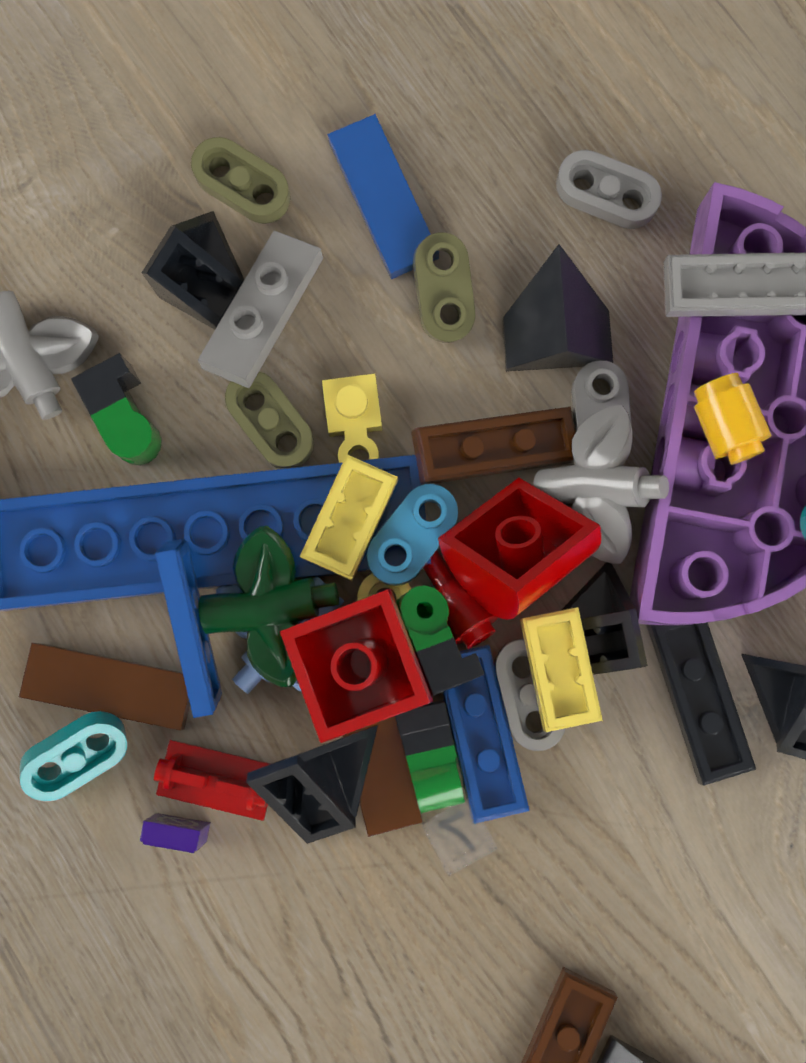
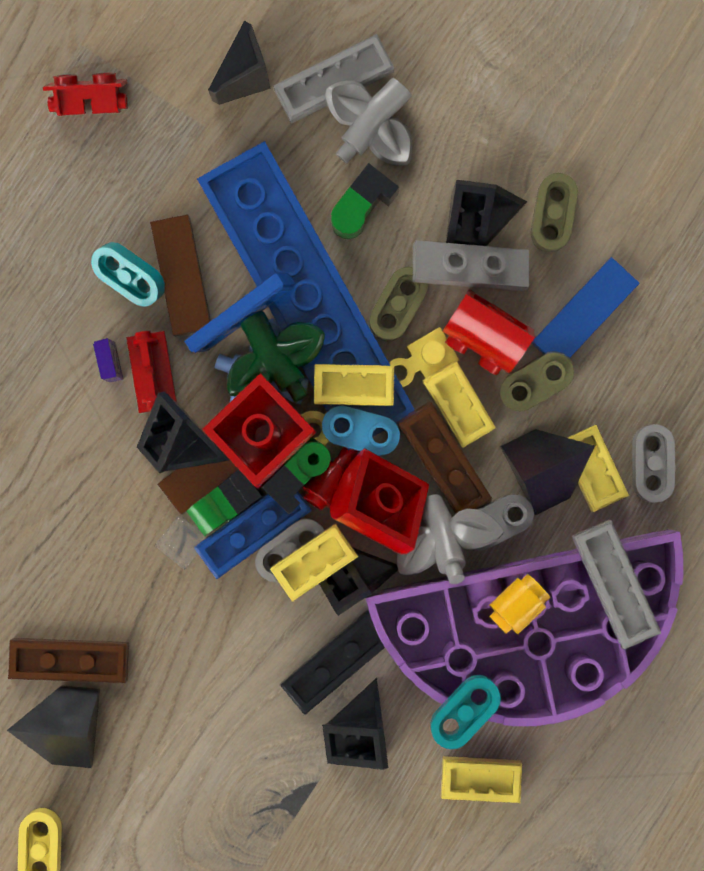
camera: 60 degrees right, 5 degrees up
(356, 318) = (489, 333): none -> red brick
(430, 397) = (458, 404): none -> light yellow plate
(605, 261) = (600, 477): none -> light yellow plate

